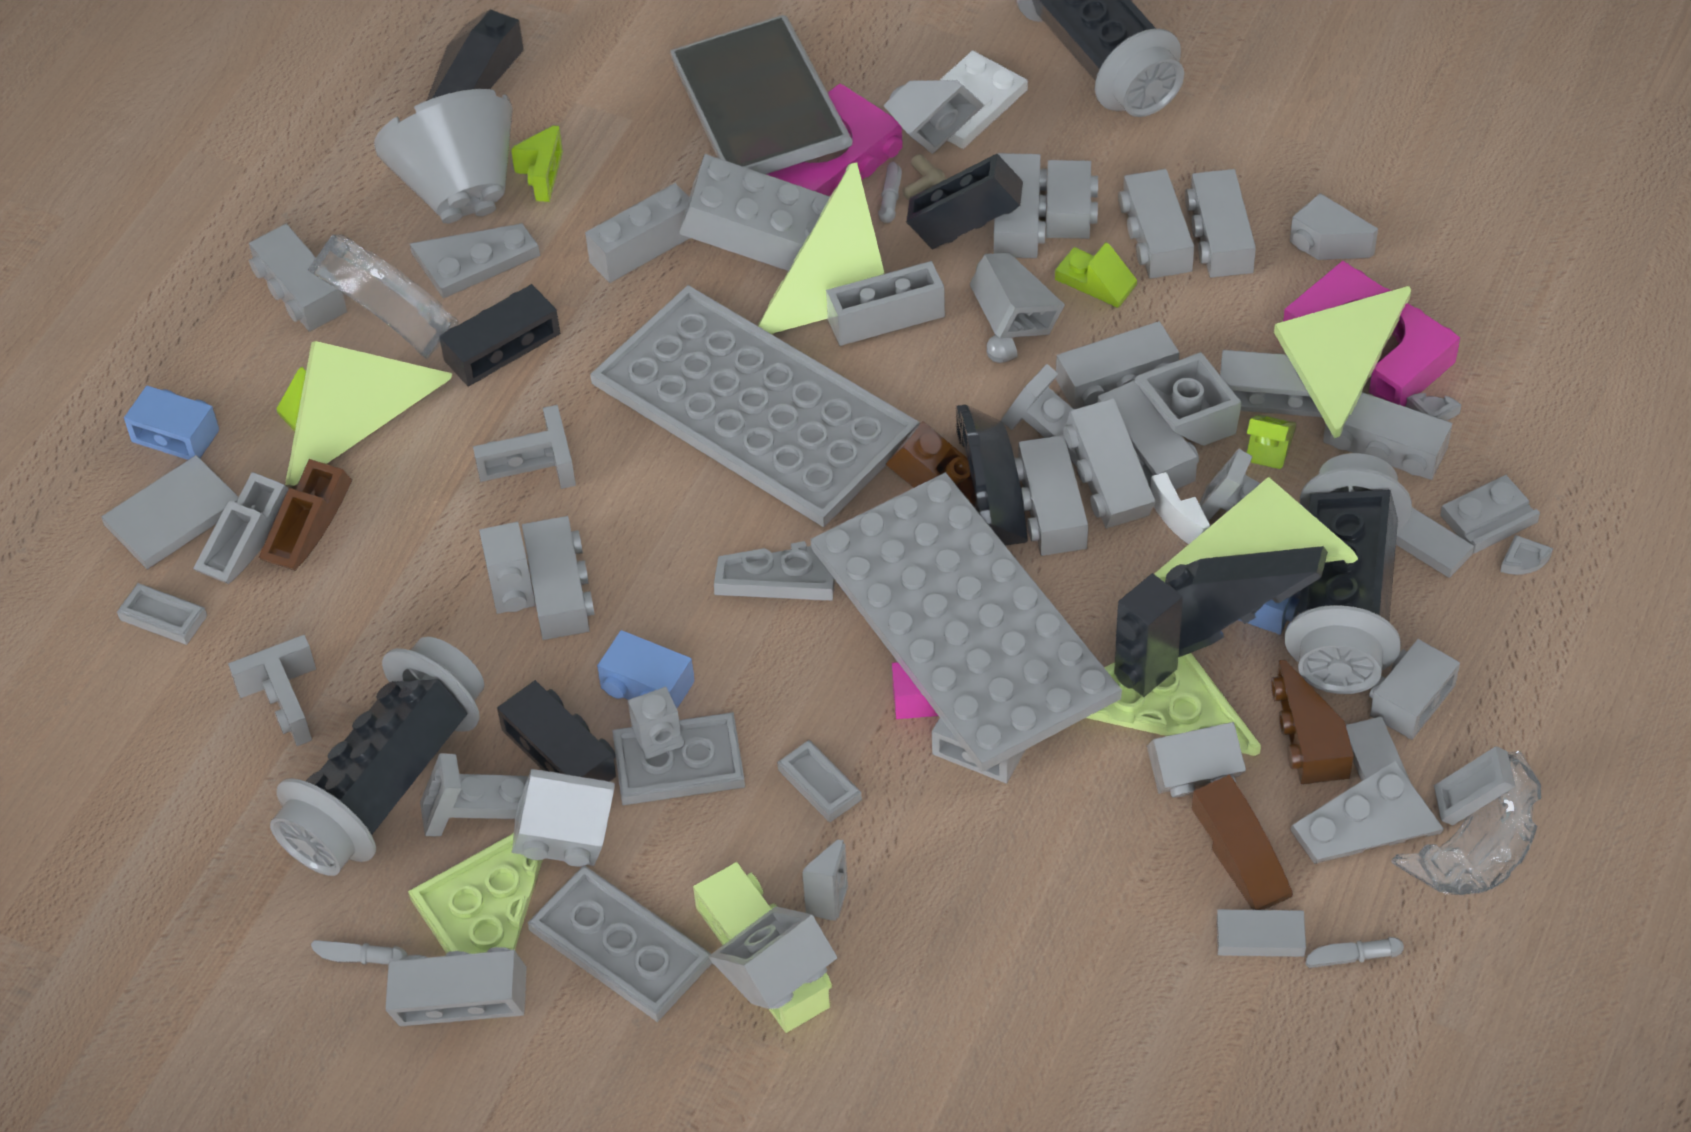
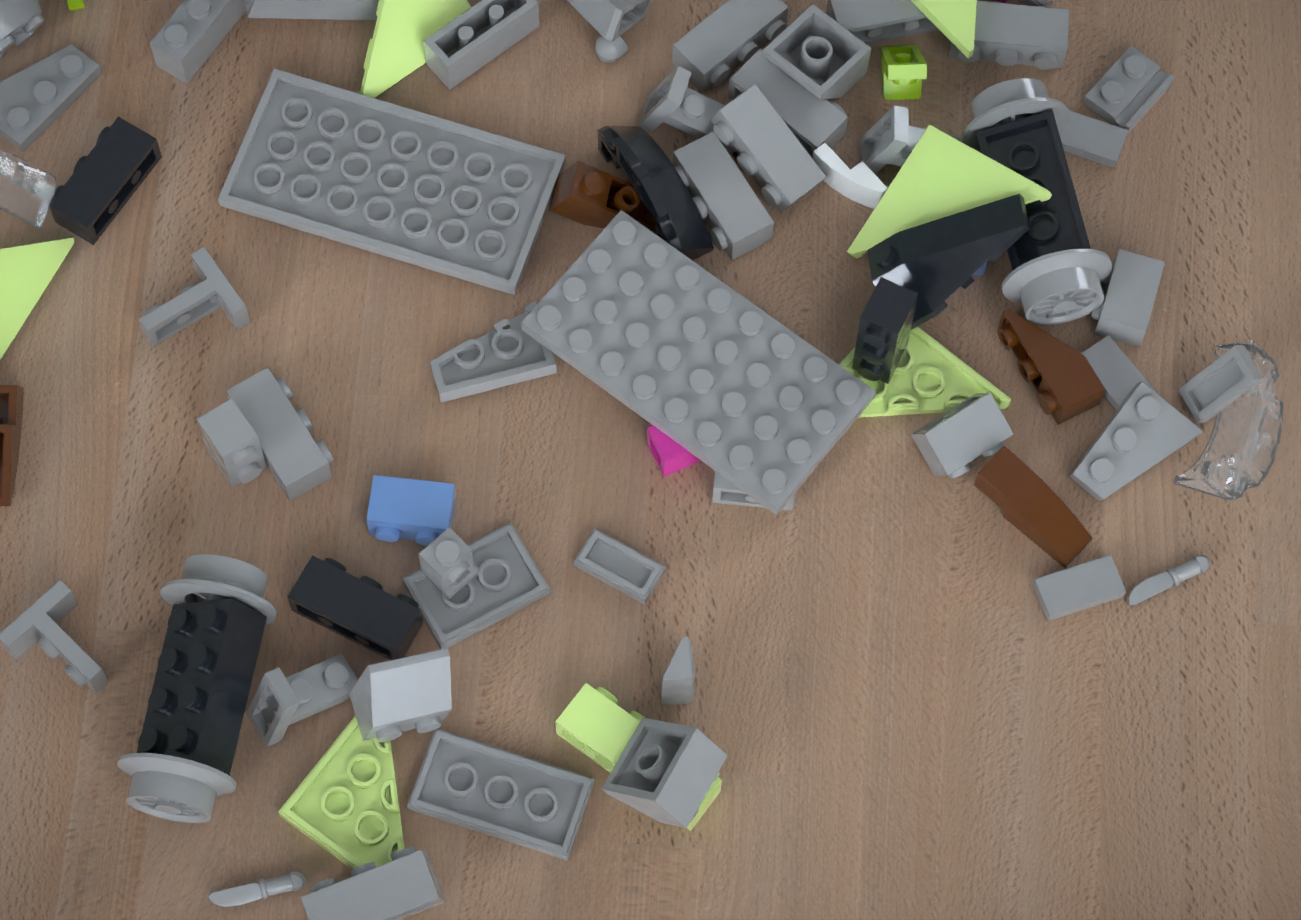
camera: 25 degrees left, 15 degrees up
(1525, 556) = (1175, 125): light grey tile -> none

